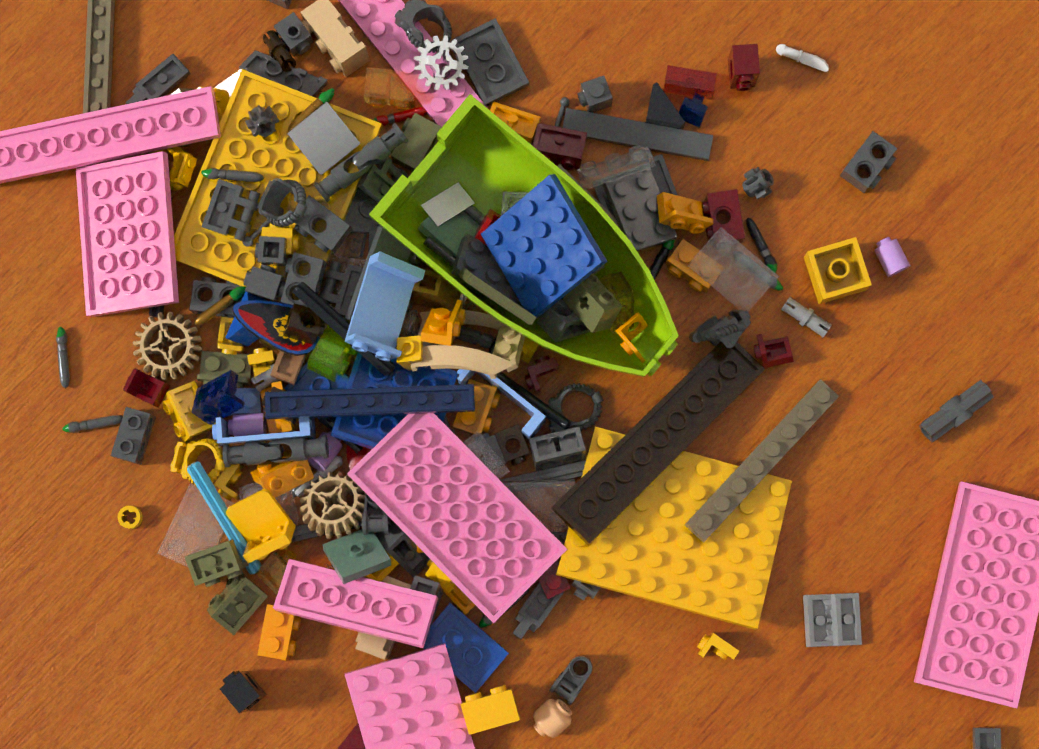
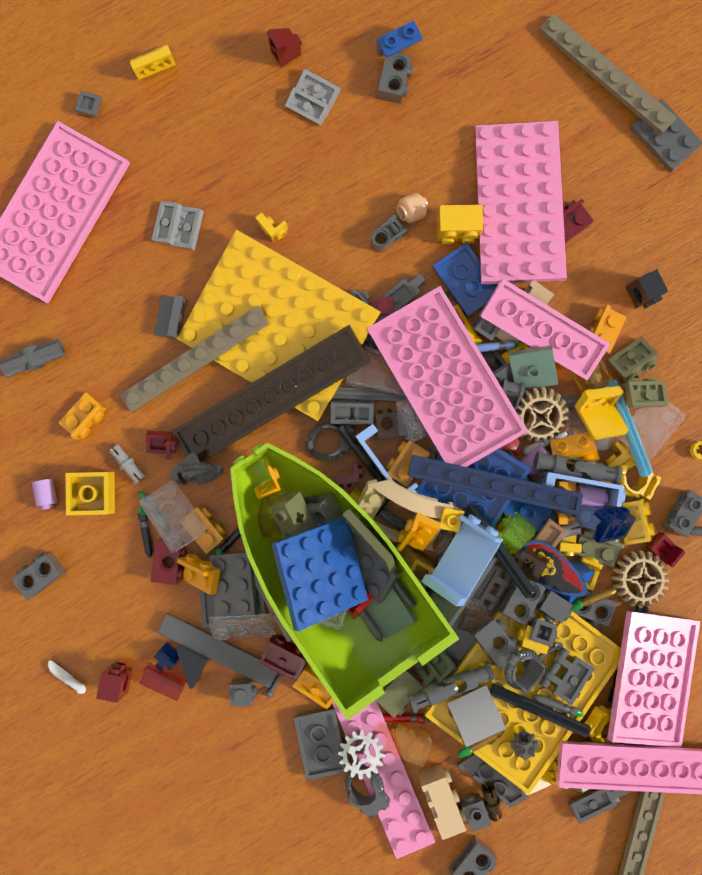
camera: 170 degrees left, 5 degrees up
(252, 164) = (540, 710): none -> black axle
(409, 570) = (495, 346): none -> medium blue piece
(447, 204) = (387, 632): white sticker -> none
(758, 183) = (132, 582): dark grey gear -> none
(808, 505) = (170, 316): none -> dark grey panel
(876, 359) = (82, 416): none -> light orange bracket

